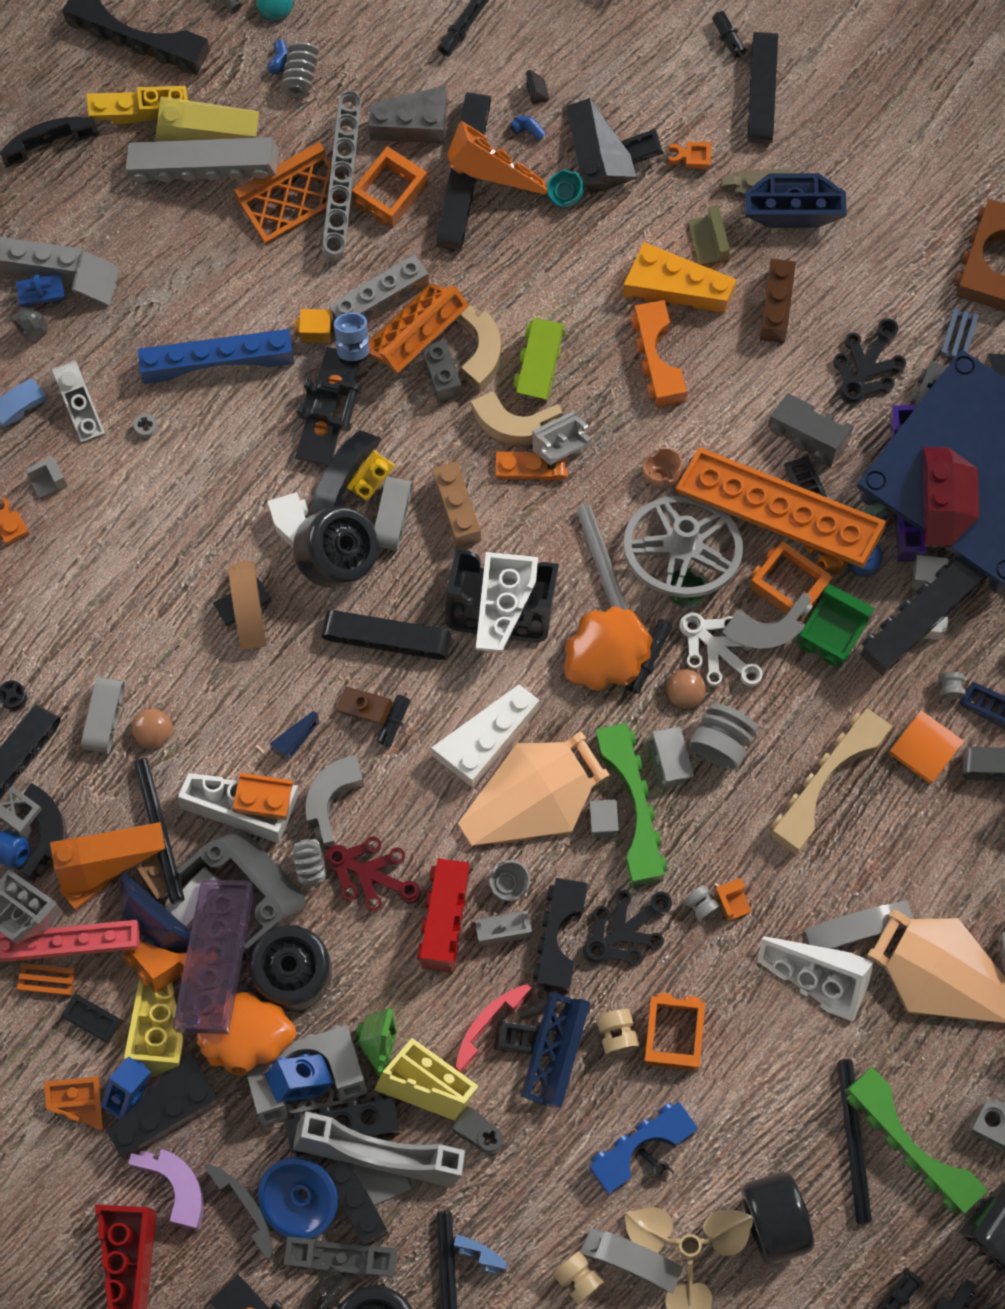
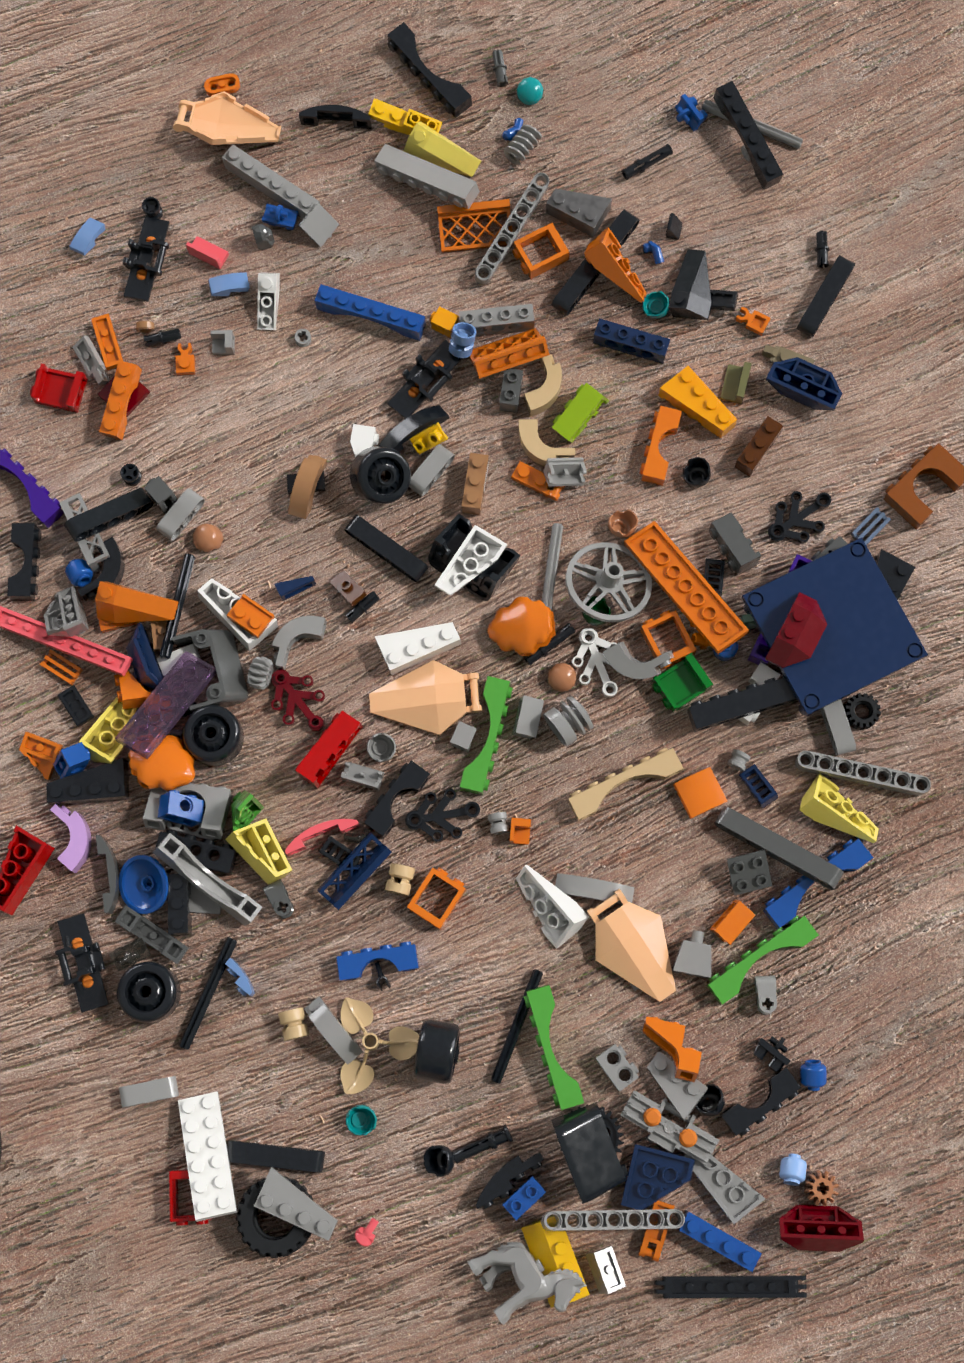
camera: 30 degrees right, 5 degrees up
(68, 700) = (160, 494): none -> dark grey brick
(557, 245) = (631, 341): none -> dark blue brick
(720, 365) = (697, 472): none -> black hair

